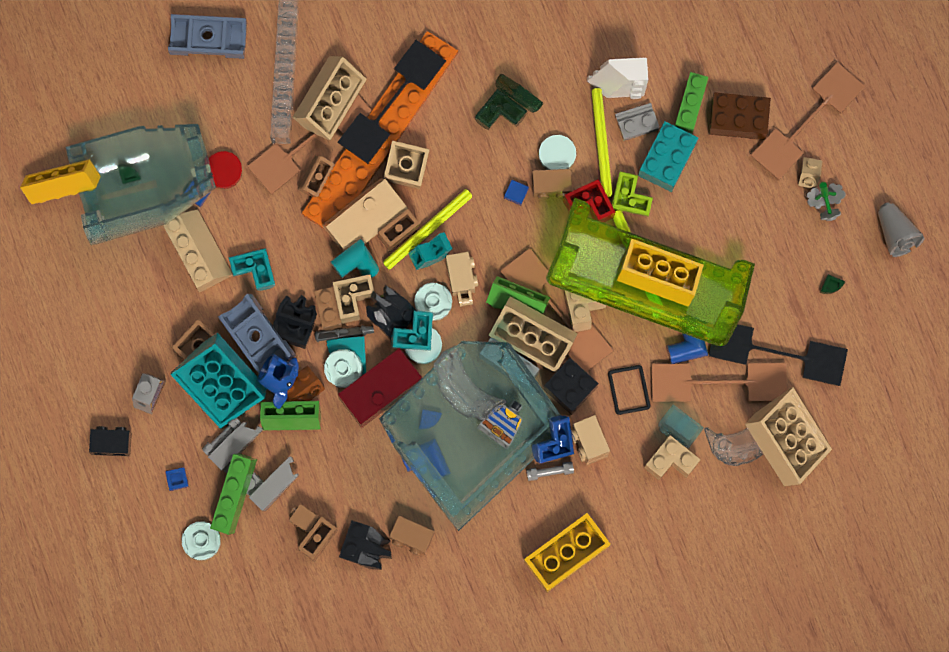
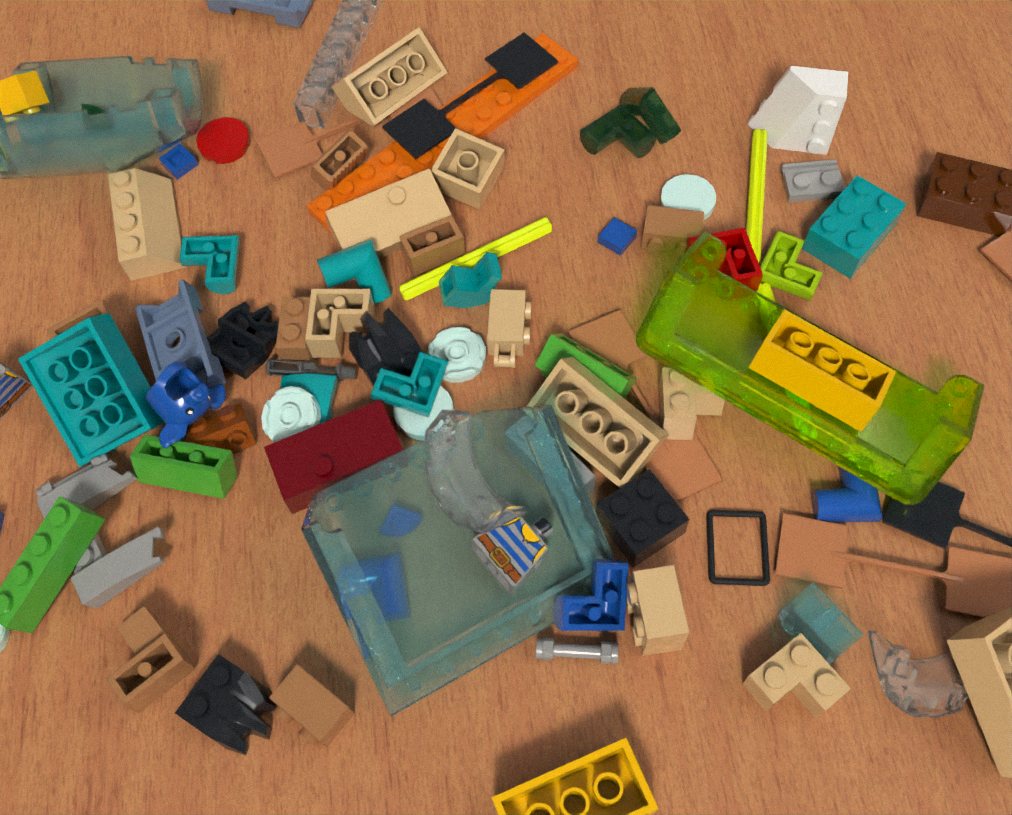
camera: 20 degrees right, 15 degrees down
(691, 102) = (901, 159): bright green brick -> none

